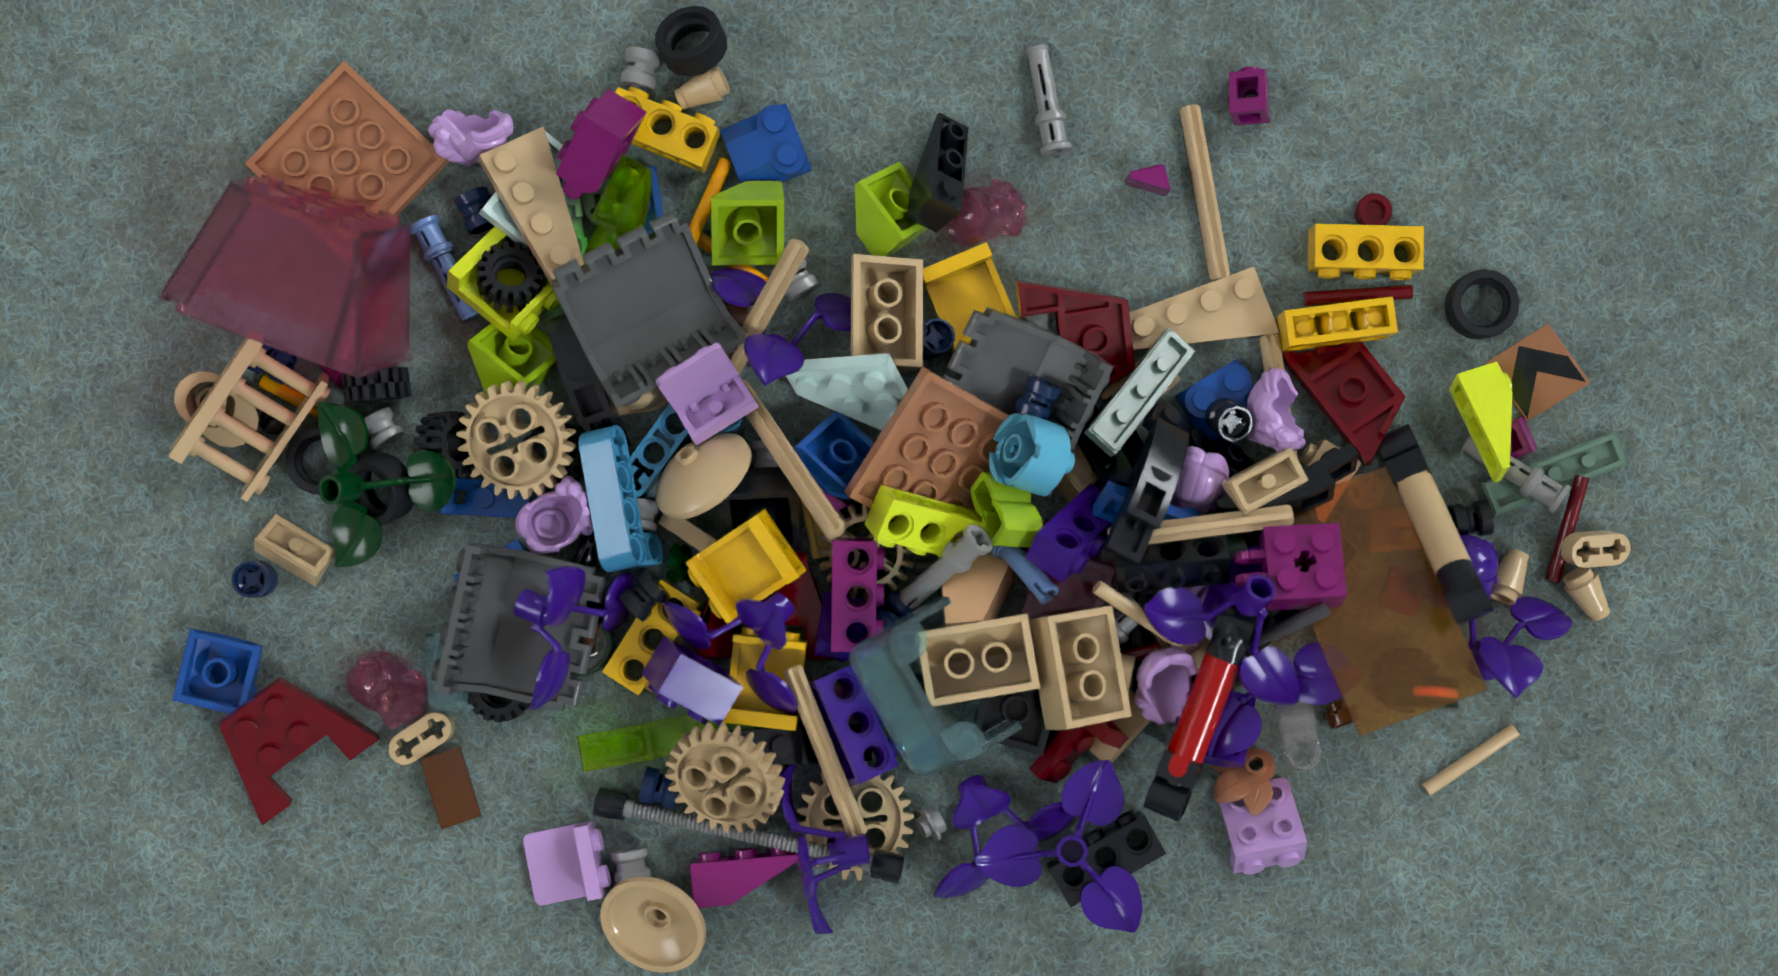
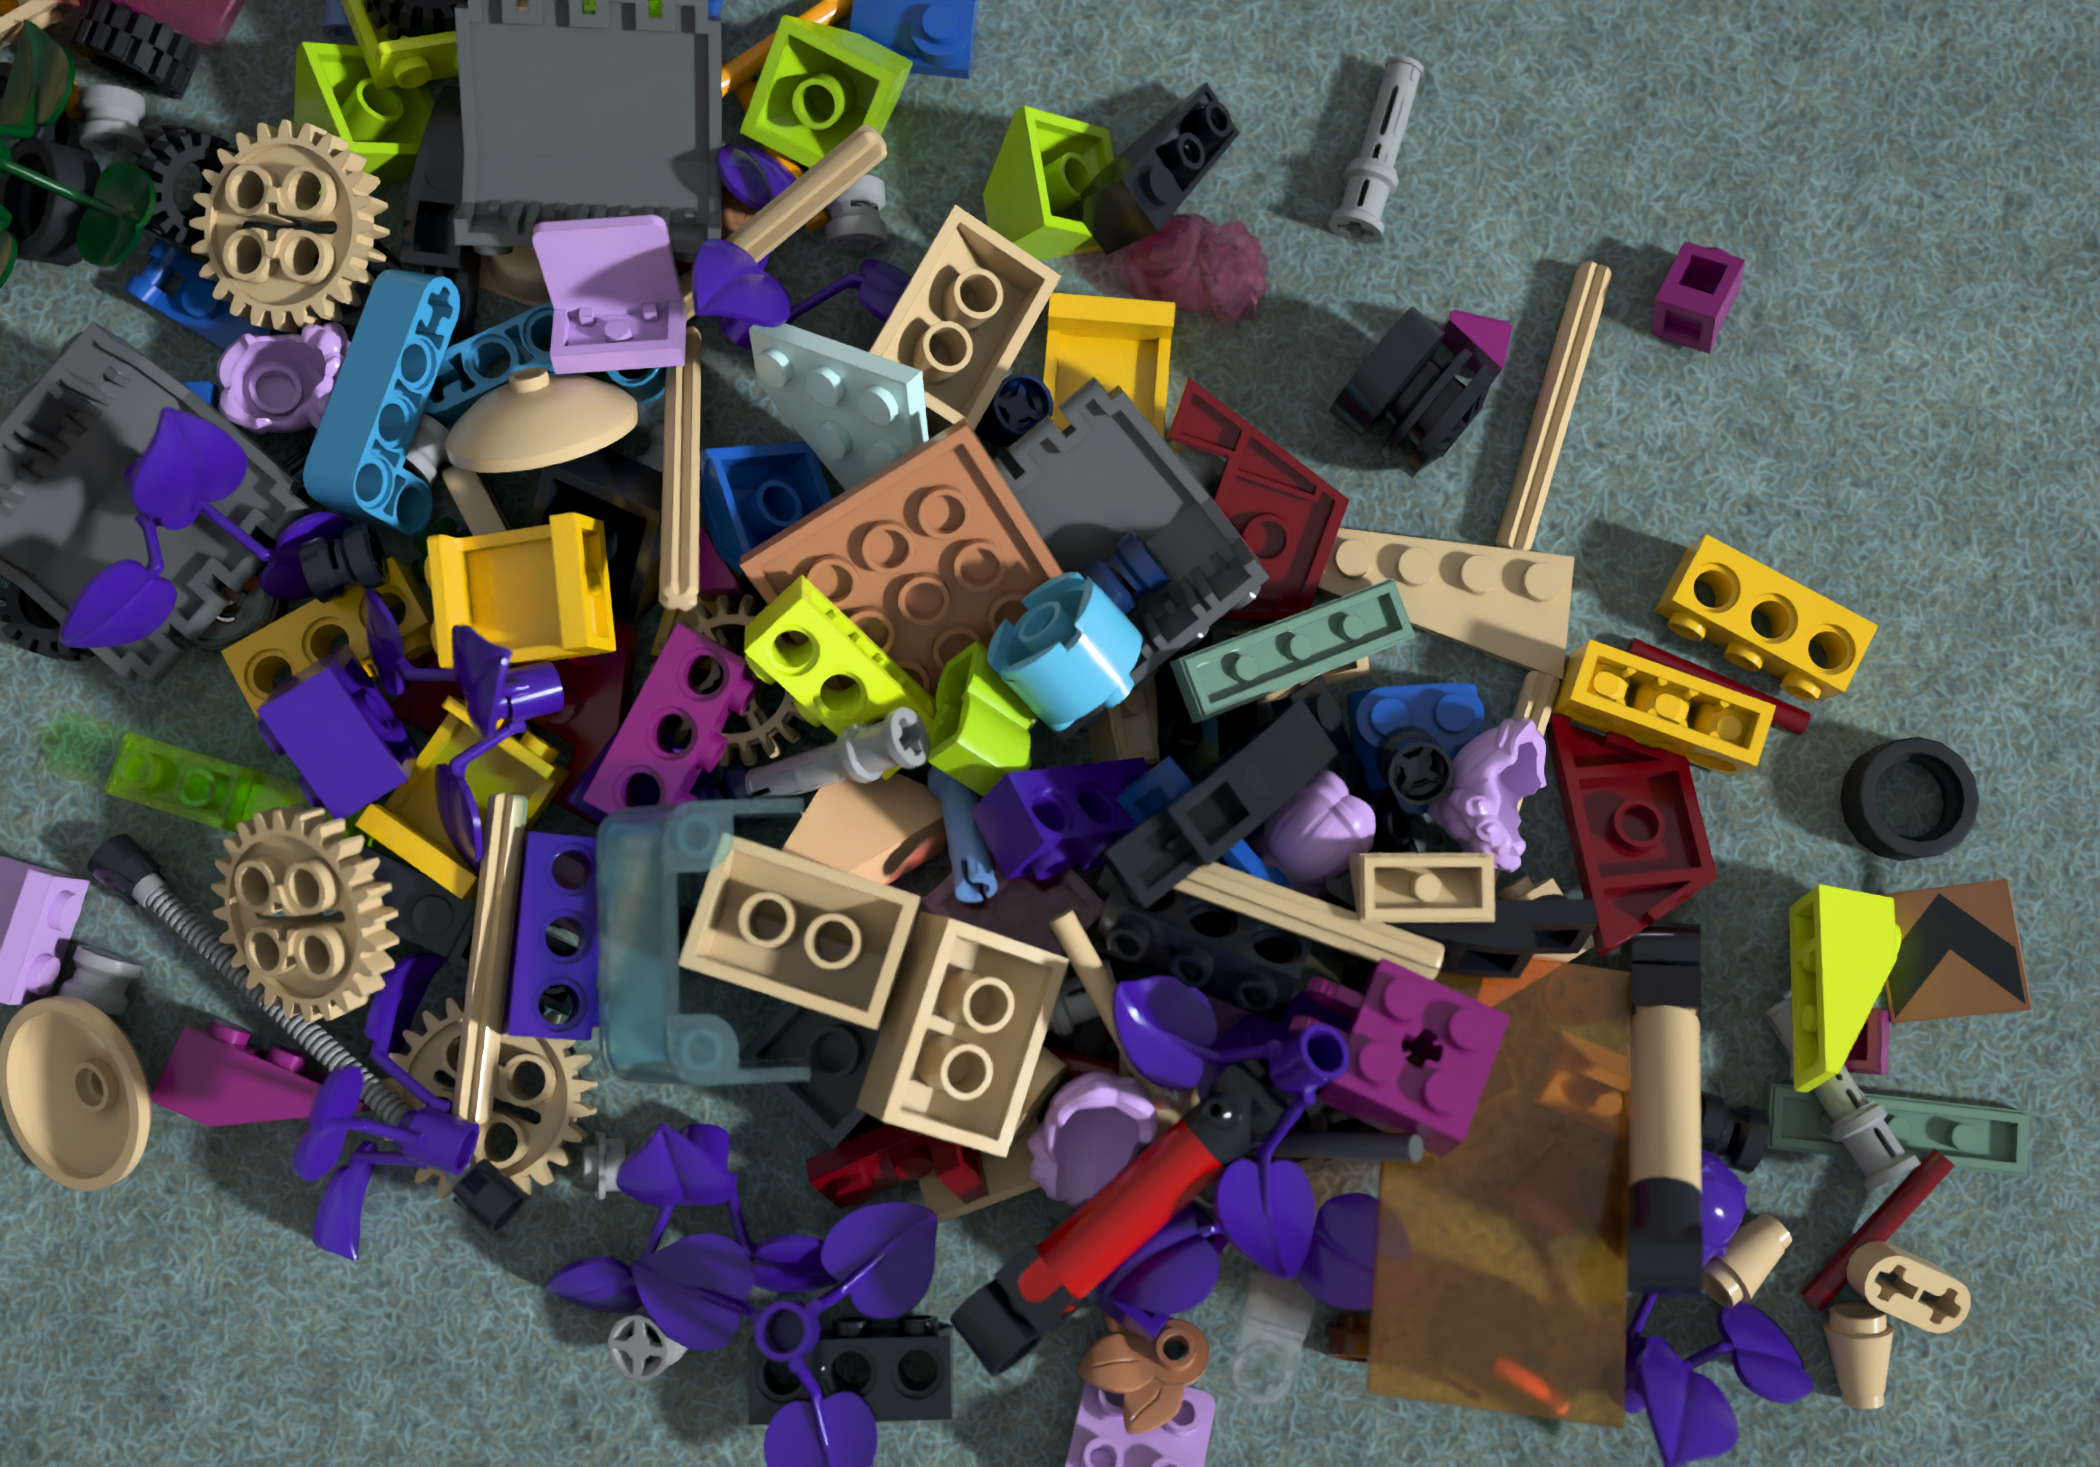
camera: 25 degrees right, 5 degrees down
(650, 786) = (193, 879): dark blue wheel -> none
(996, 902) = (637, 1351): none -> light grey wheel
(1132, 227) = (1413, 392): none -> black wheel
(1373, 210) = (1807, 563): dark red tile -> none

